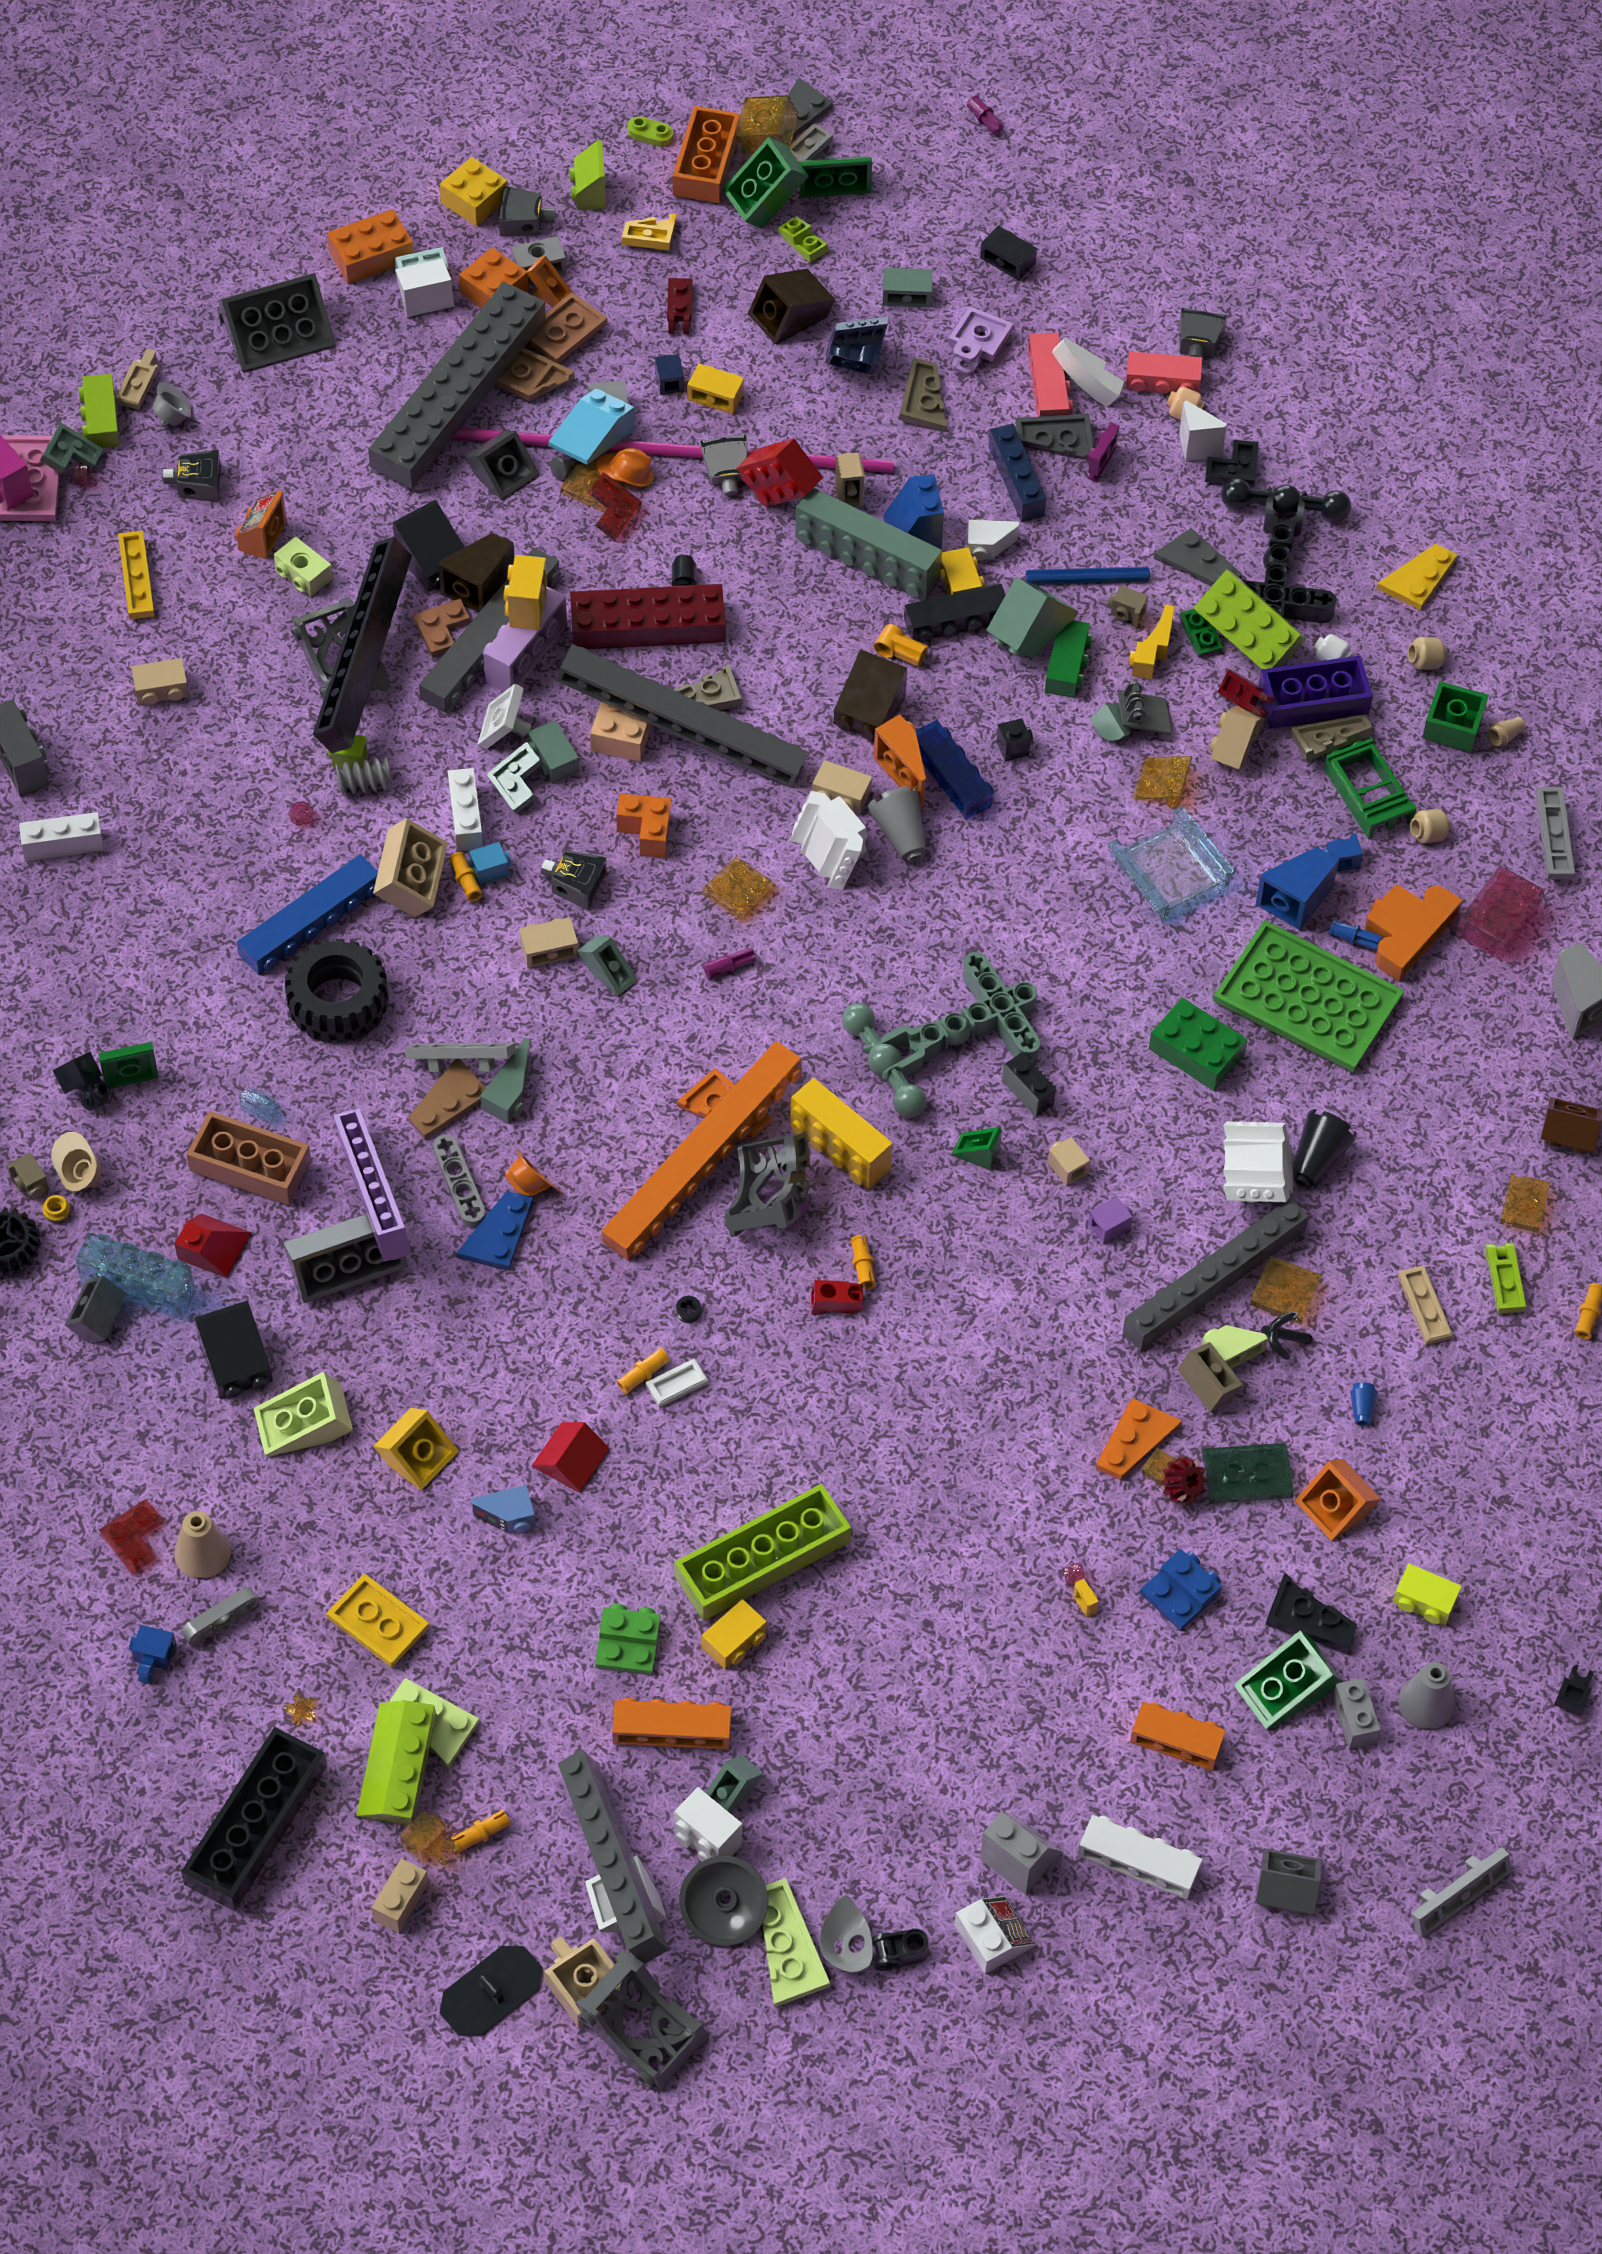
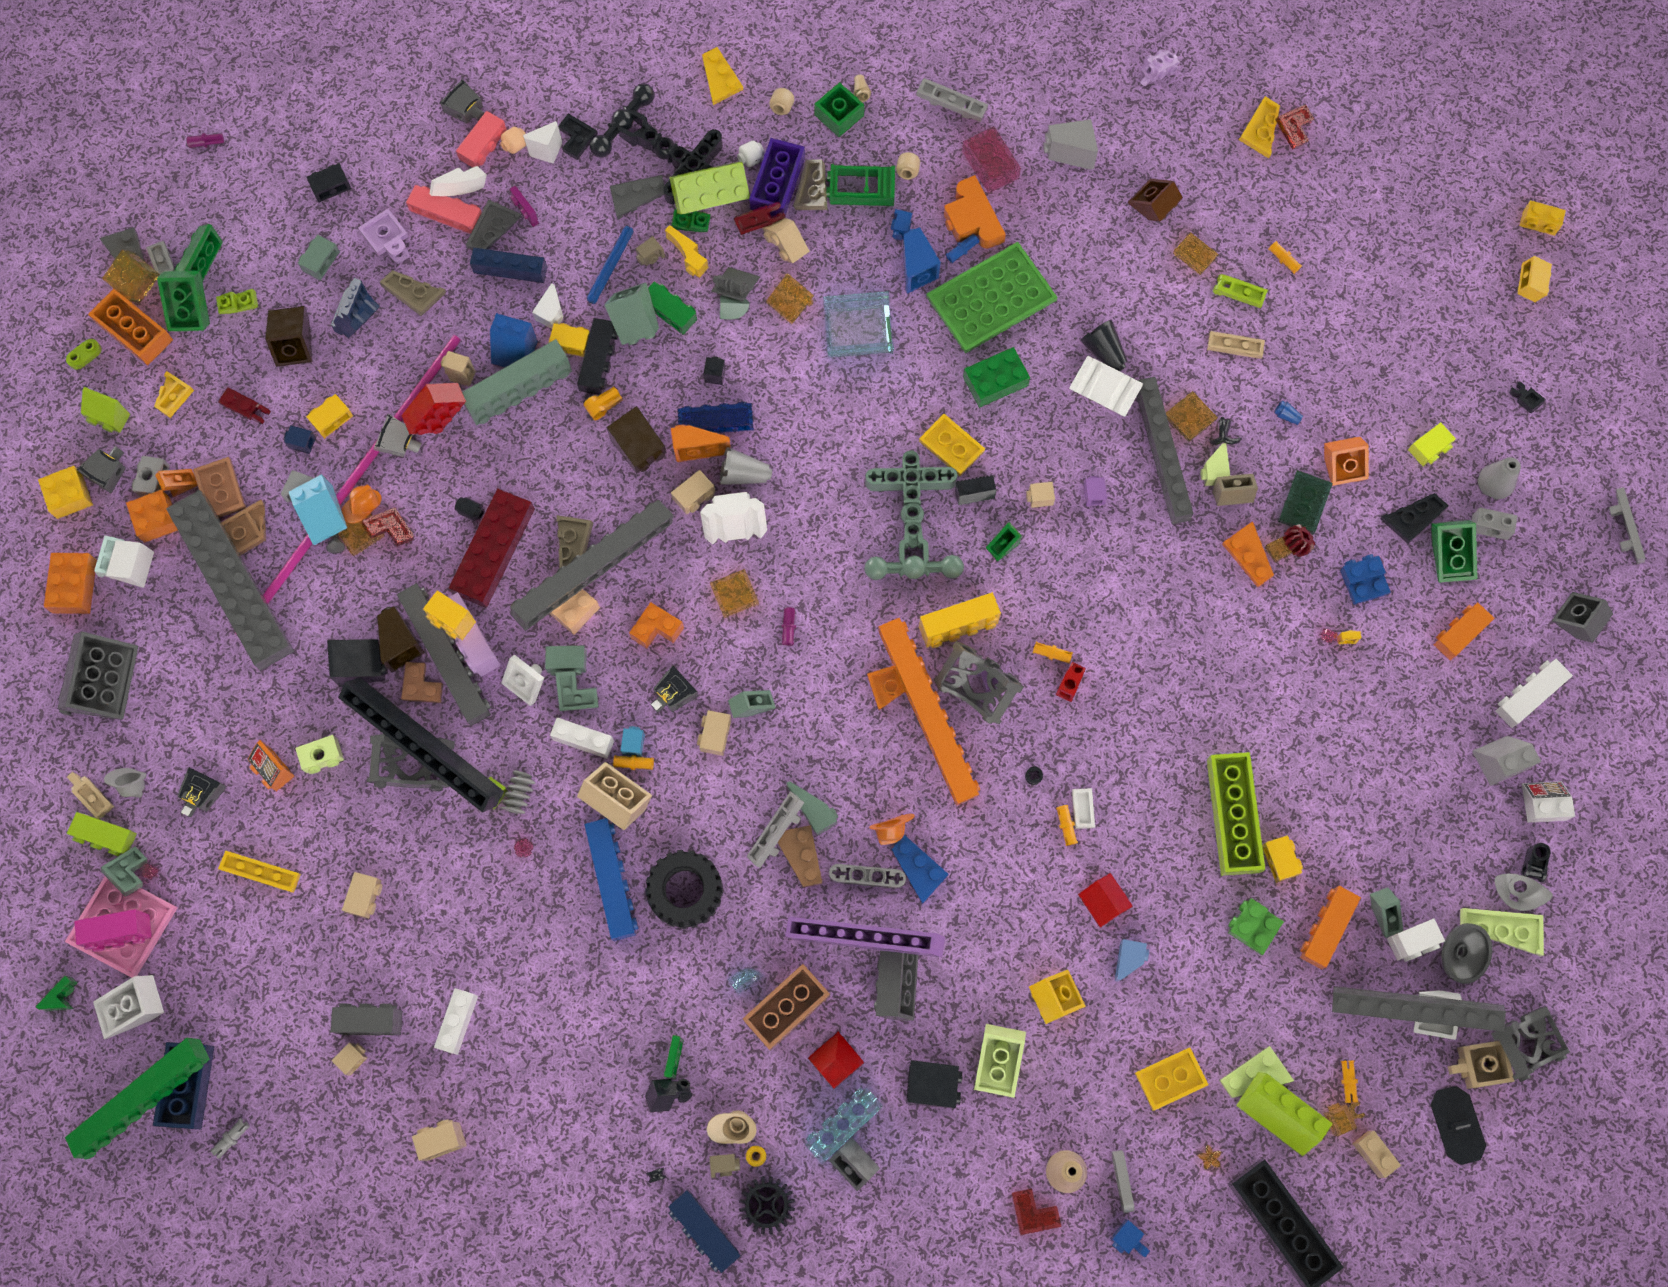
camera: 60 degrees left, 15 degrees up
(502, 464) = (310, 582): dark grey slope -> none
(1076, 1036) = (952, 444): none -> yellow plate

